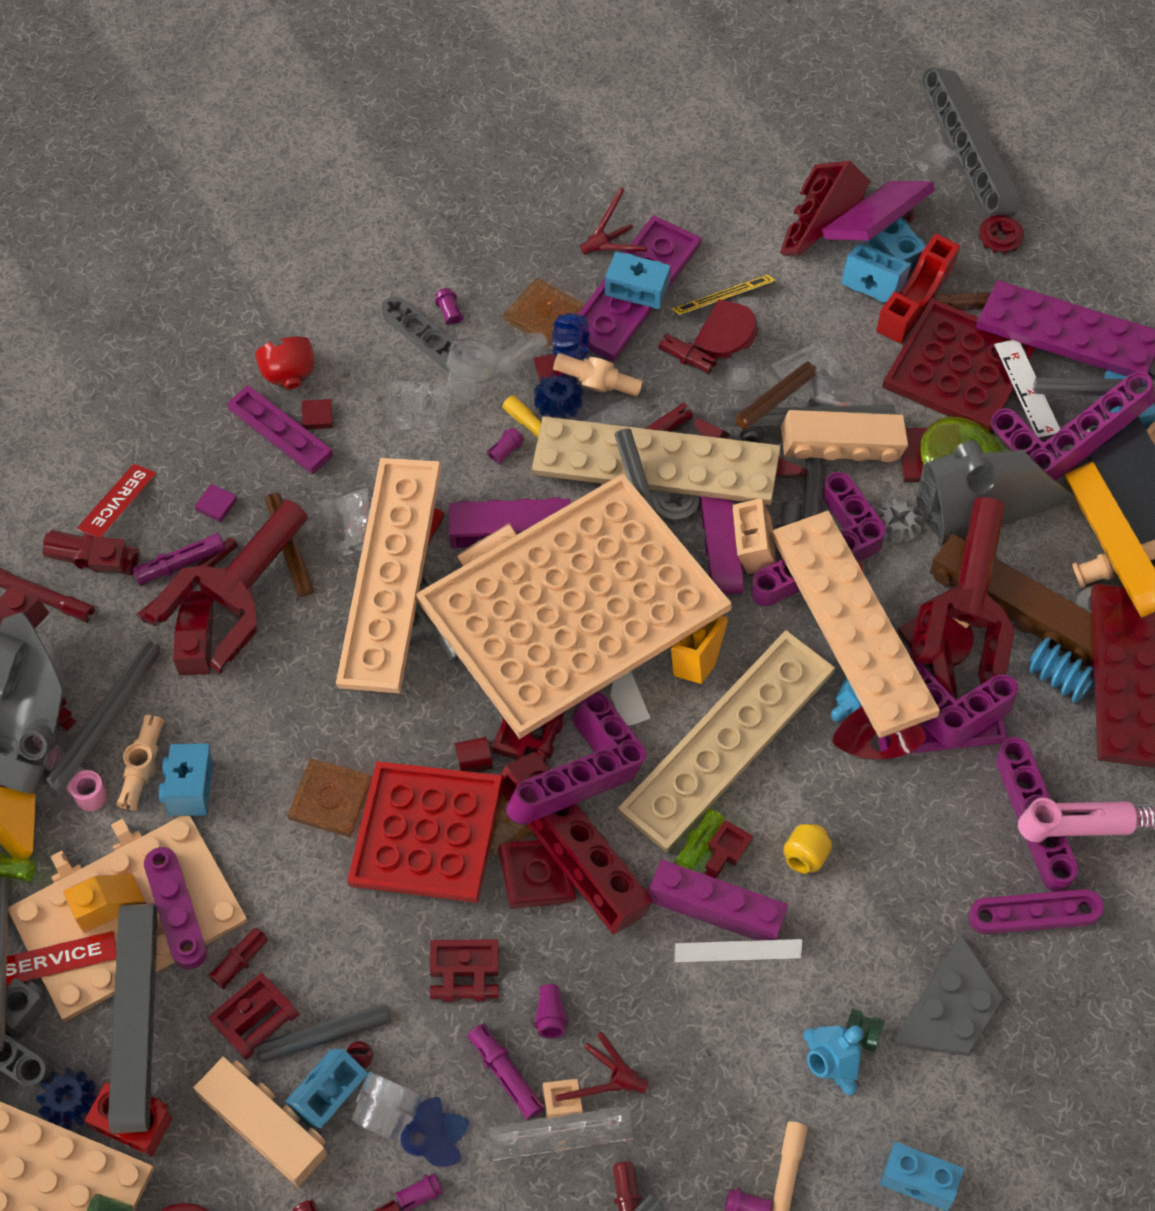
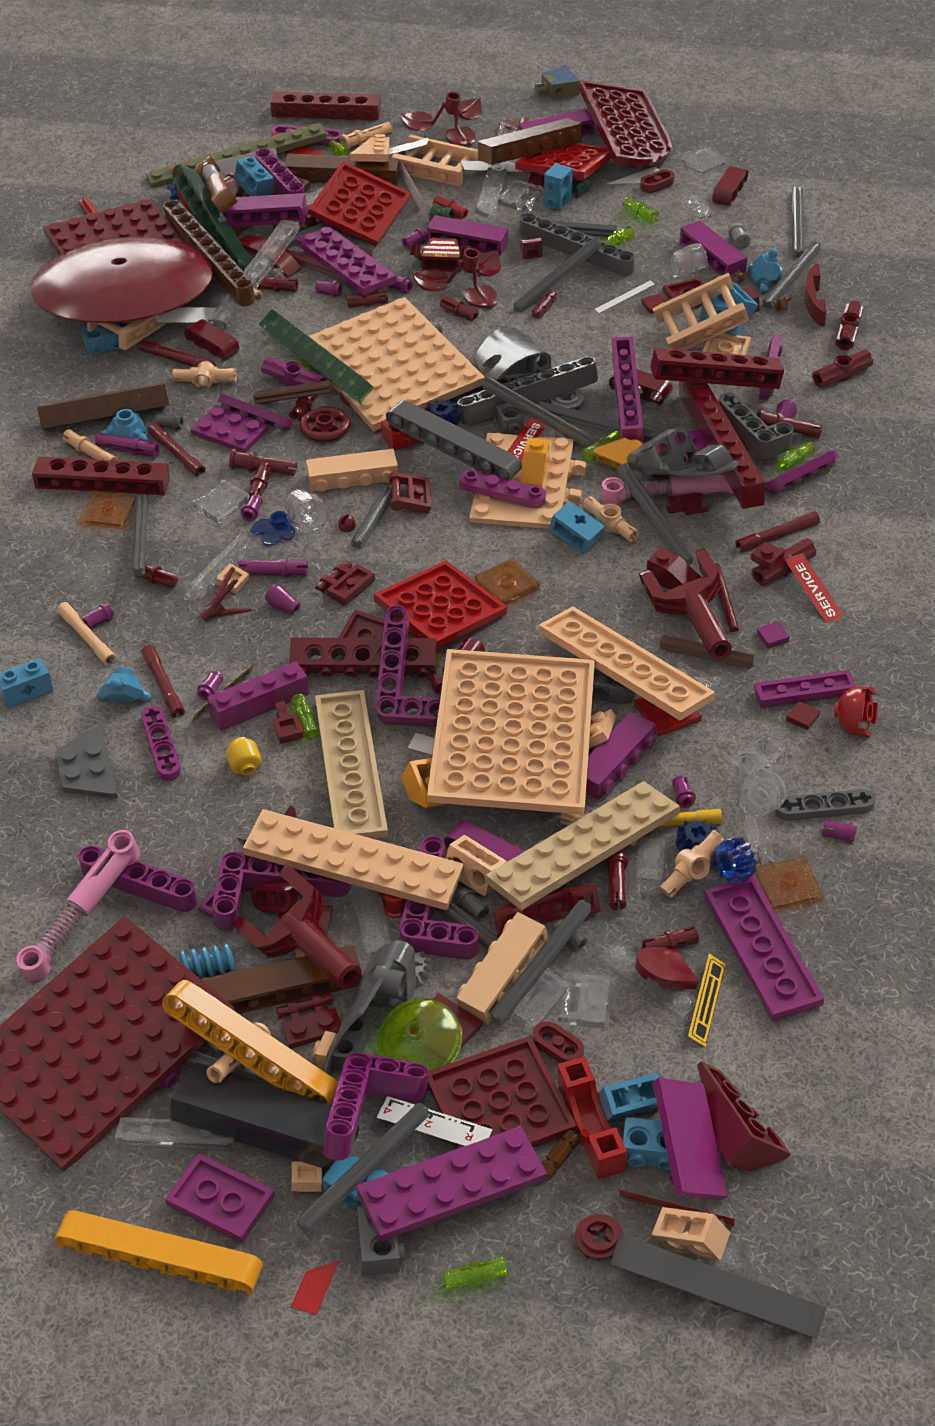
camera: 130 degrees right, 15 degrees down
(168, 563) = (737, 602): magenta pin -> none
(238, 958) = (450, 505): dark red axle -> none
(326, 1088) = (339, 493): dark azure brick -> none
(601, 240) = (826, 955): dark red plant -> none
(633, 464) = (568, 815): dark grey axle -> none
(637, 280) = (757, 933): dark azure brick -> none
(740, 976) = (210, 685): none -> magenta pin
(760, 1069) = (154, 664): none -> dark red piece
(775, 395) = (571, 941): reddish brown axle -> none
(859, 957) = (161, 743): none -> magenta beam
(867, 364) = (561, 1042): none -> dark red plate
(873, 1031) = (120, 713): clear green wheel -> none
(934, 202) = (661, 1203): none -> red sticker
(954, 165) = (691, 1233): none -> light nougat brick
(1028, 548) = (312, 1026): none -> dark red plate
(1035, 911) = (89, 833): magenta plate -> none
(1043, 512) = (322, 1048): none -> light nougat plate
(1109, 284) = (475, 1273): none -> clear neon green pin

